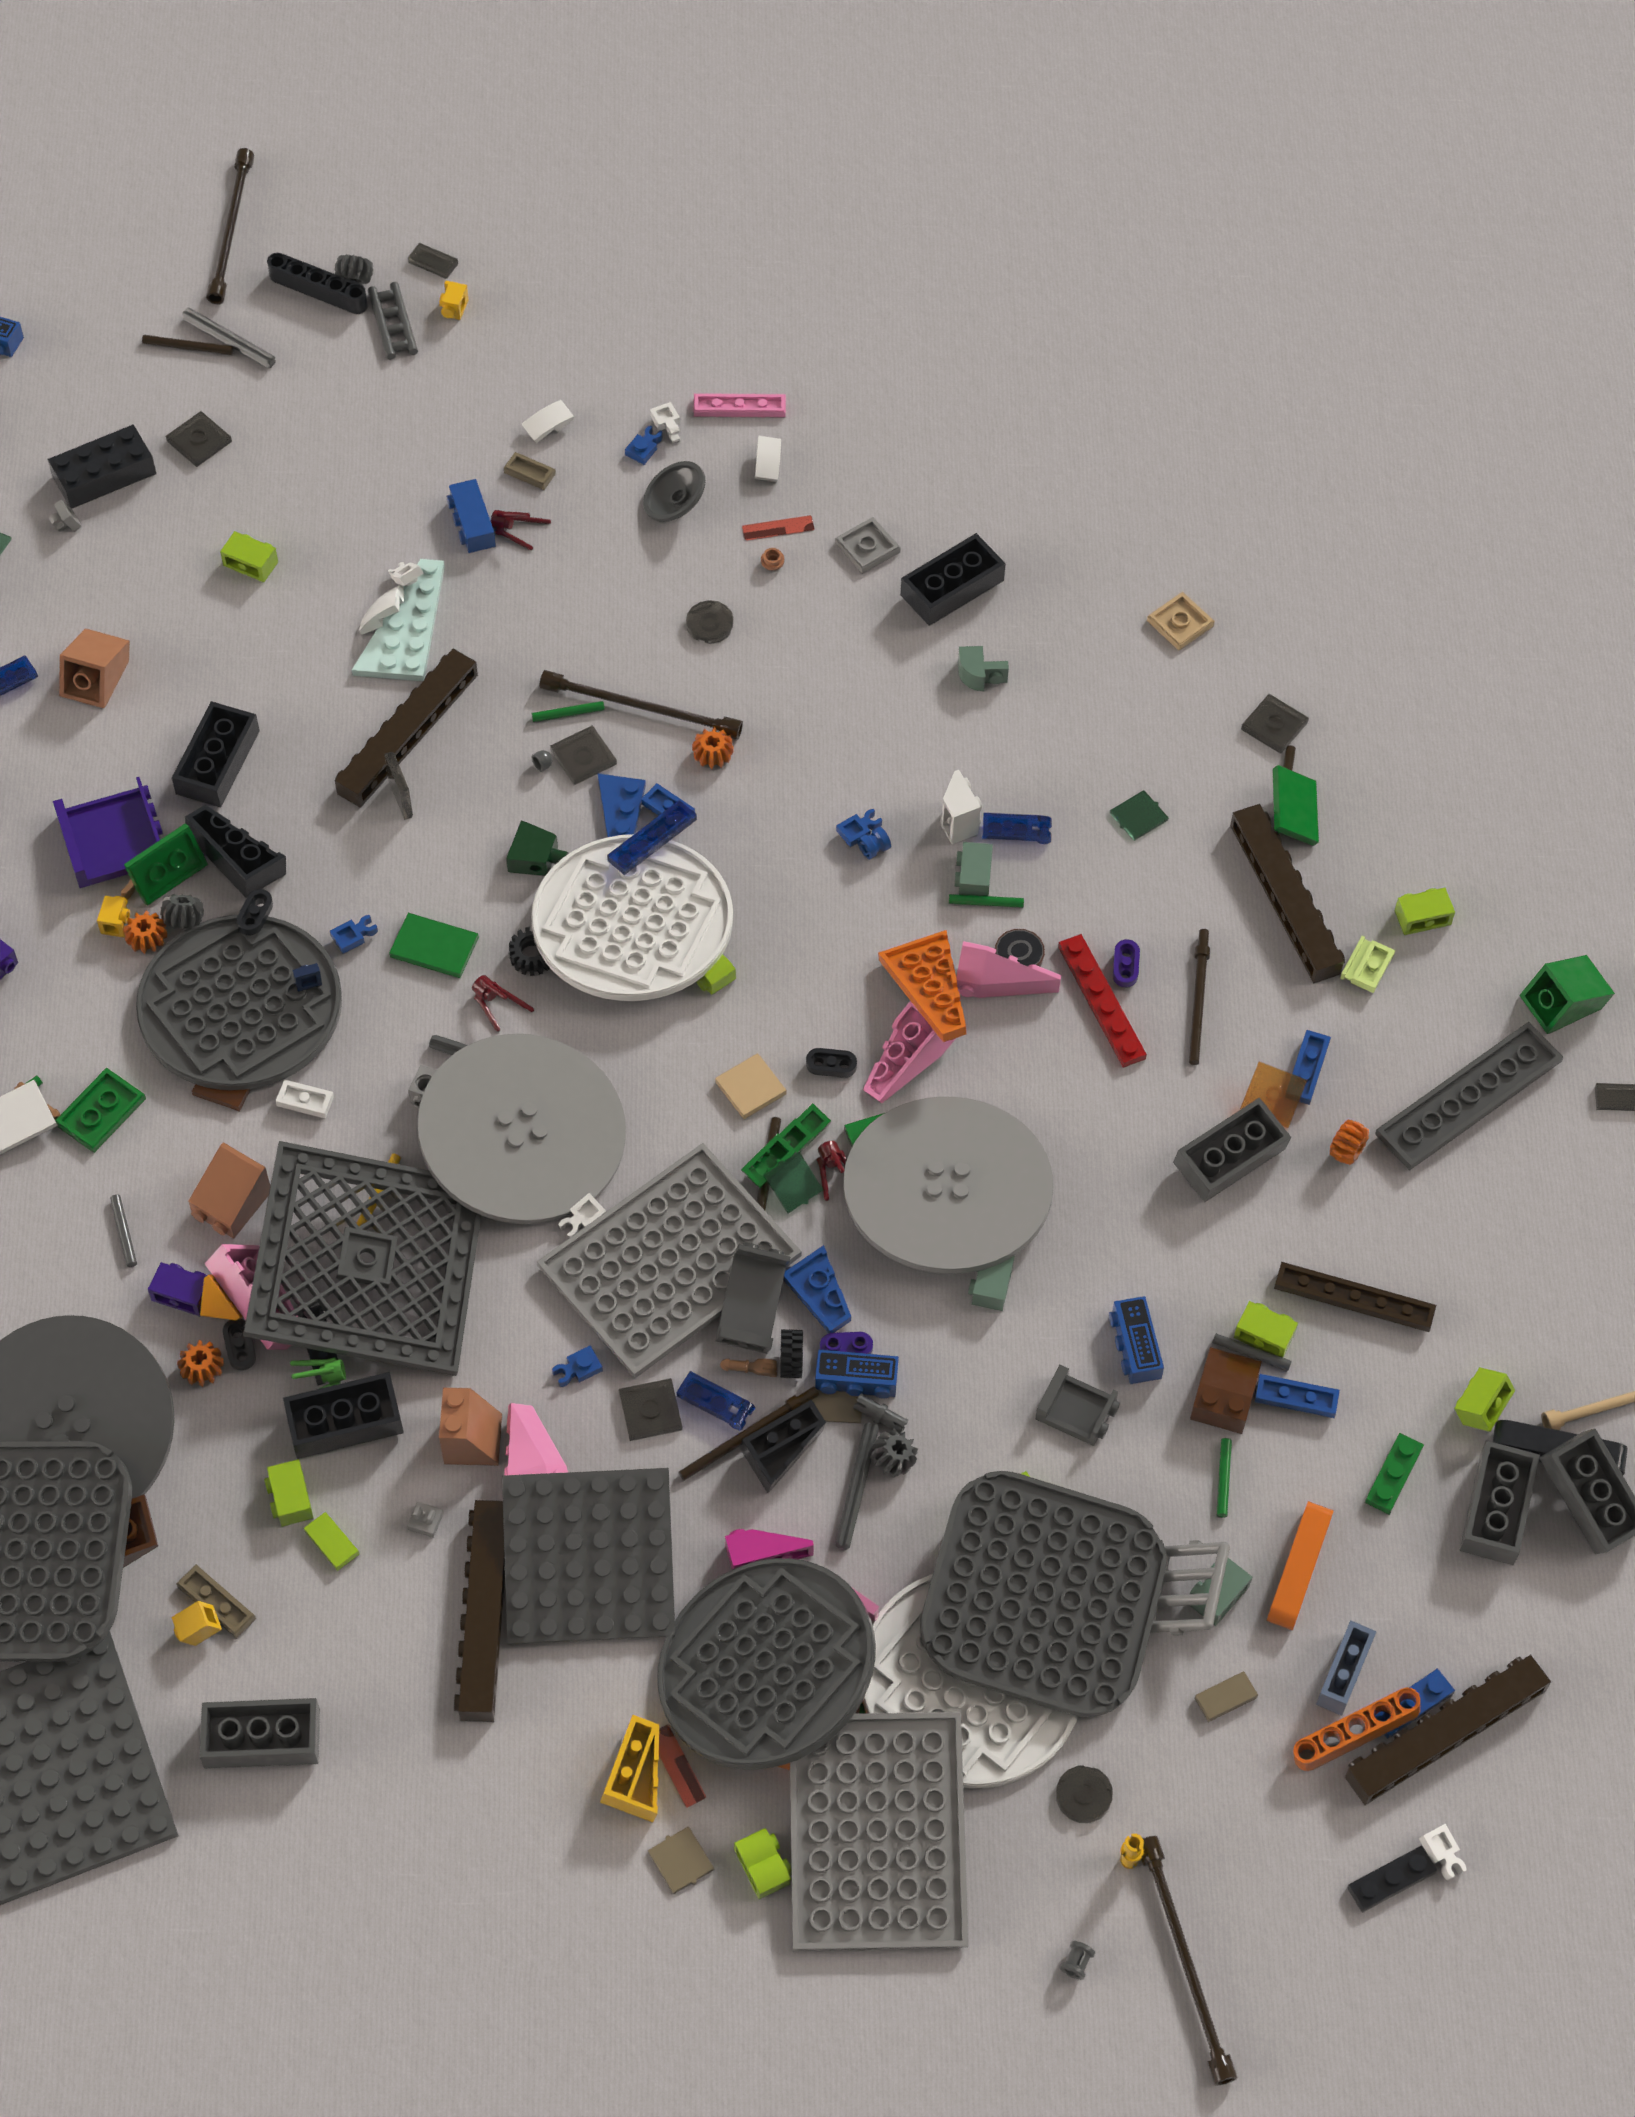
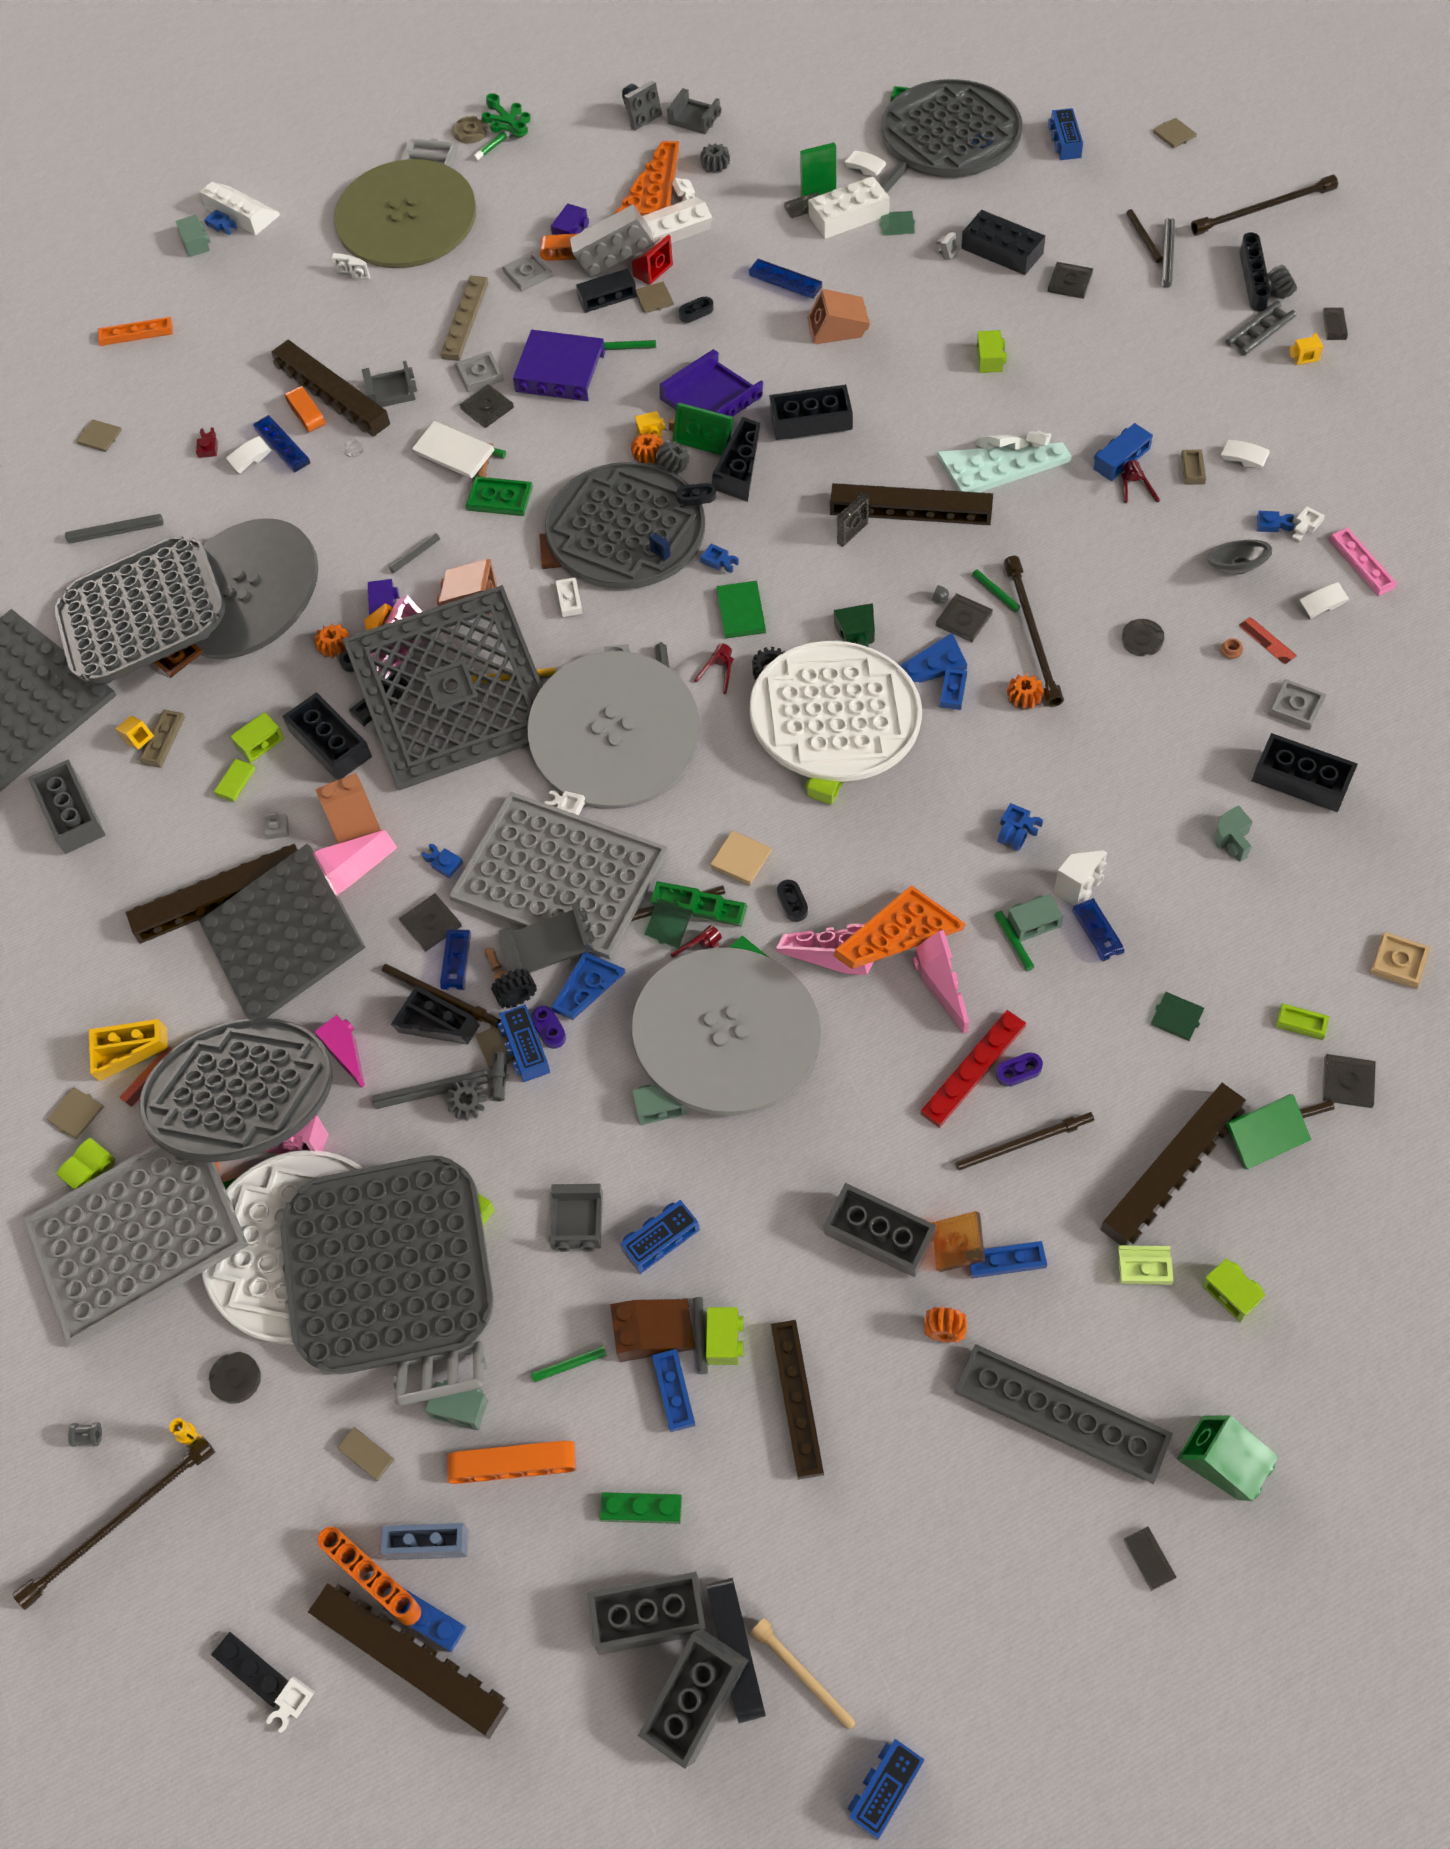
camera: 70 degrees right, 0 degrees up
(58, 240) = (1174, 133): none -> dark tan piece
(330, 1370) = (354, 712): bright green plant -> none
(651, 837) = (910, 686): clear blue plate -> none
(1023, 945) = (981, 986): black tile -> none
(1198, 725) = (1302, 1021): none -> lime tile
(1484, 1399) = (747, 1556): lime brick -> none

